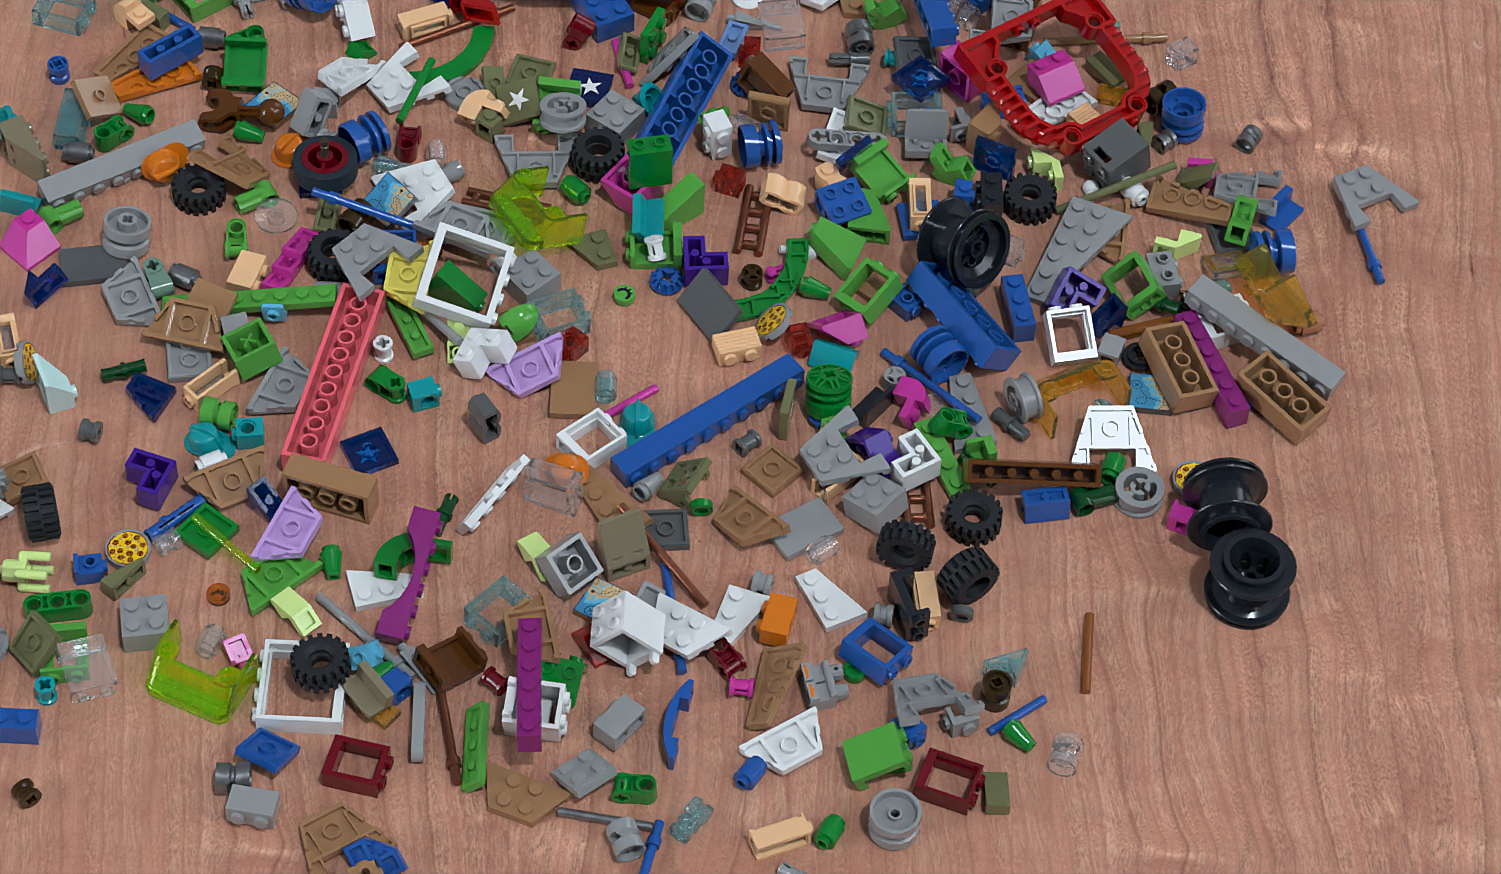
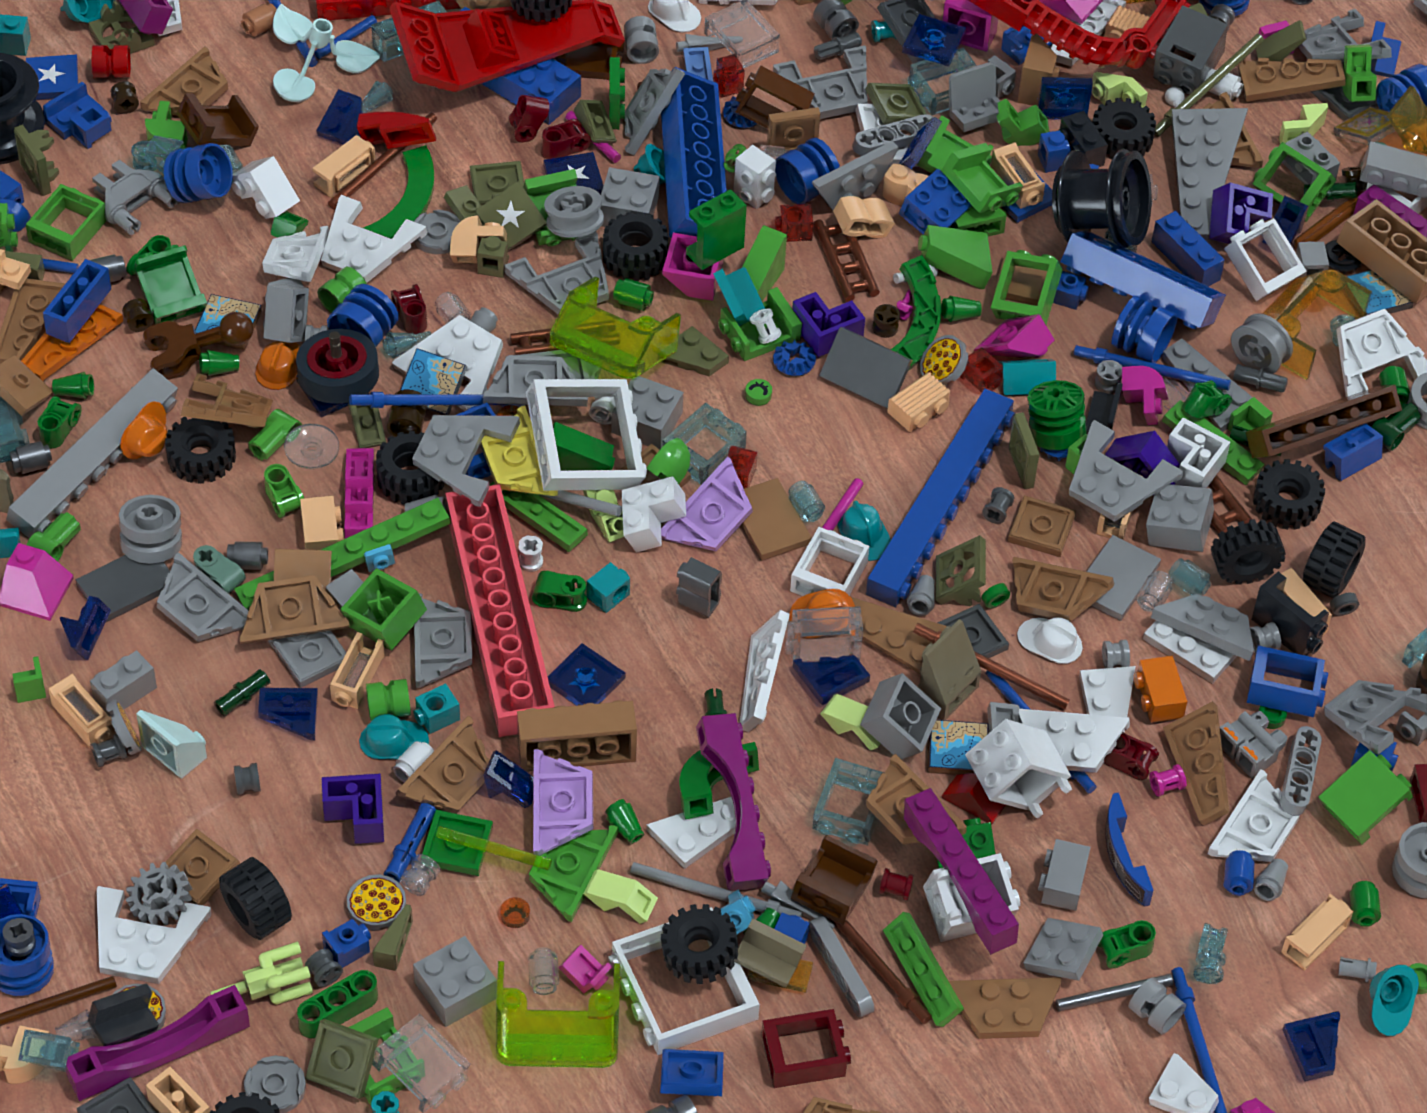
camera: 25 degrees left, 0 degrees up
(47, 332) = (125, 681): none -> light grey brick
(63, 578) = (324, 968): none -> dark grey wheel
(370, 103) = (336, 289): none -> bright green wheel
(415, 90) = (388, 246): green bar -> none
(545, 518) = (832, 676): none -> clear blue wing
(595, 57) = (563, 139): none -> dark red piece
(724, 555) = (1051, 639): none -> white piece
(770, 788) = (1271, 880): none -> light grey cone
(792, 162) = (857, 177): none -> light grey wing
(846, 720) = (1300, 770): none -> light grey beam
(847, 586) = (1209, 622): none -> light grey wing
(856, 549) = (1190, 577): none -> clear light blue brick
(882, 195) = (978, 180): none -> bright green panel

